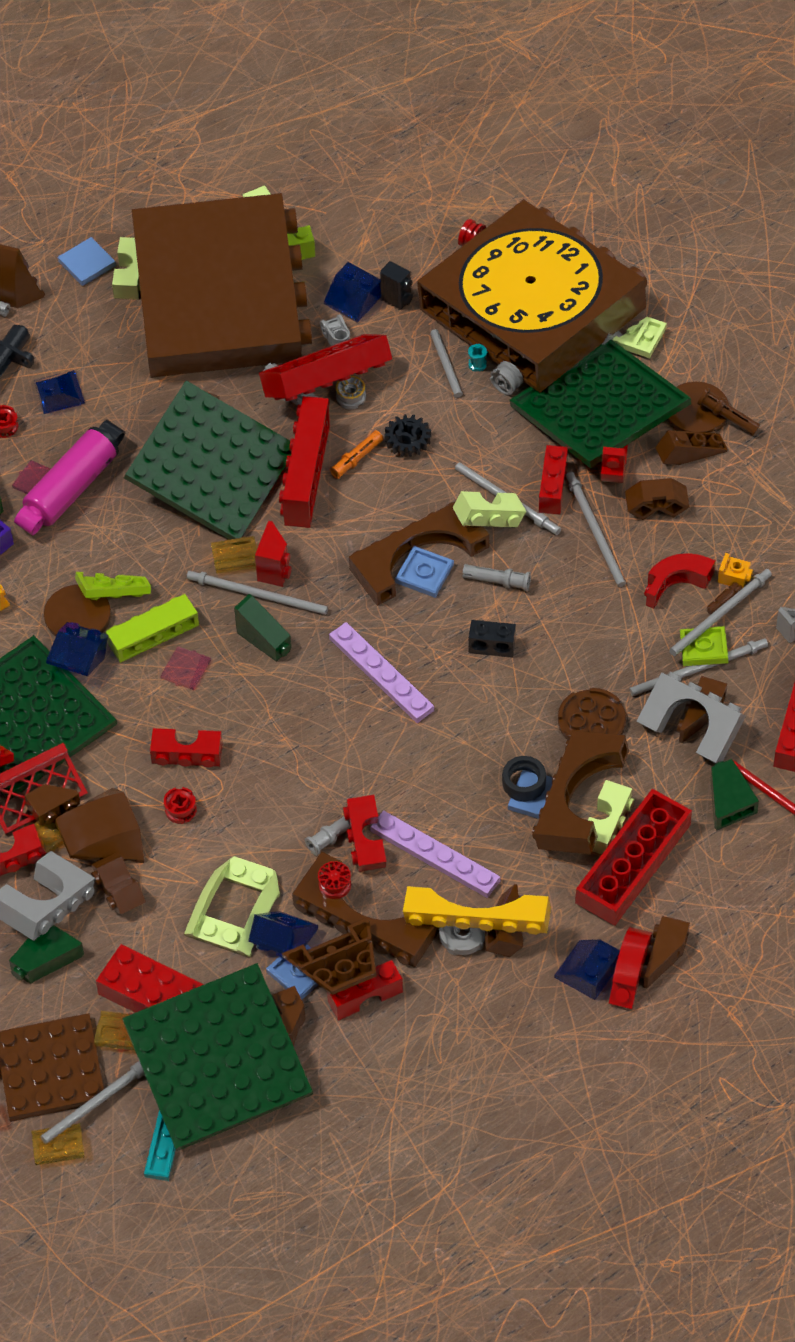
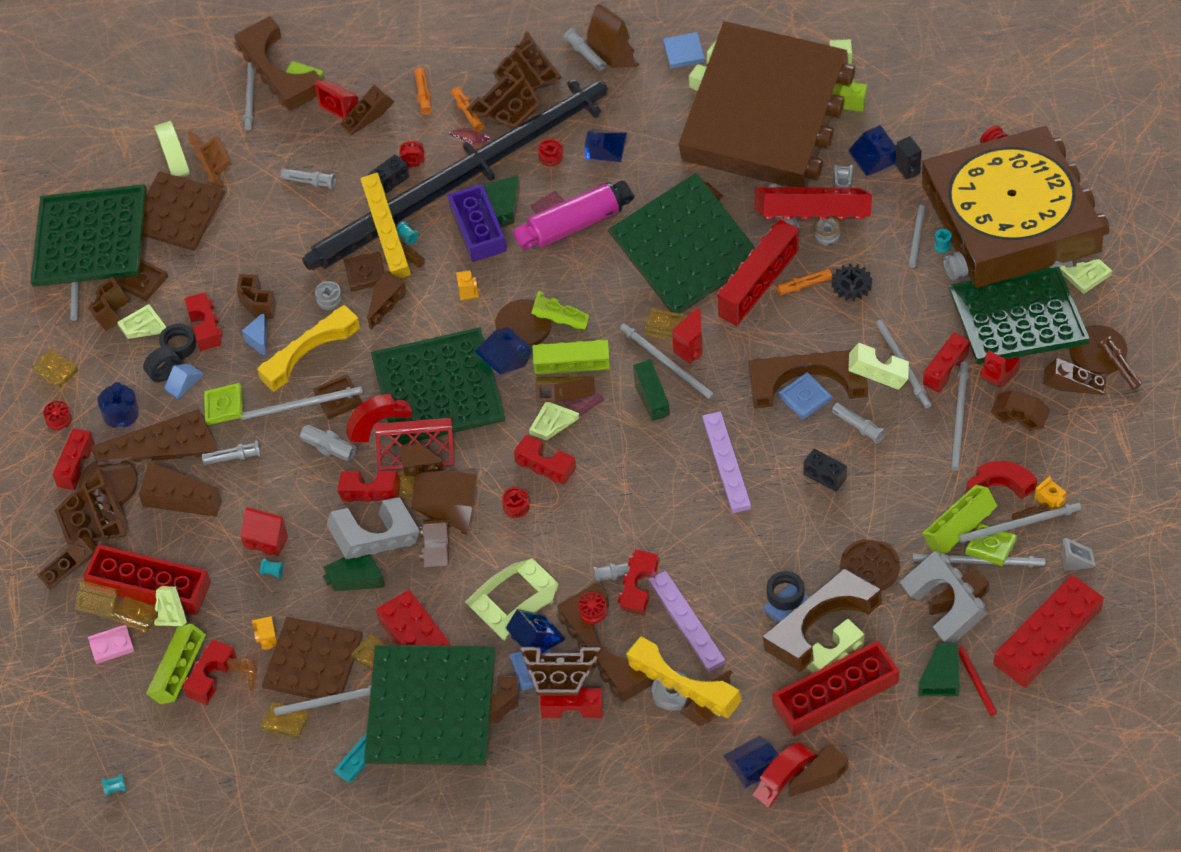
camera: 30 degrees right, 0 degrees up
(163, 664) = (563, 388): none -> reddish brown slope
(170, 702) = (552, 420): none -> yellowish green wing
(660, 632) = (959, 519): none -> lime brick

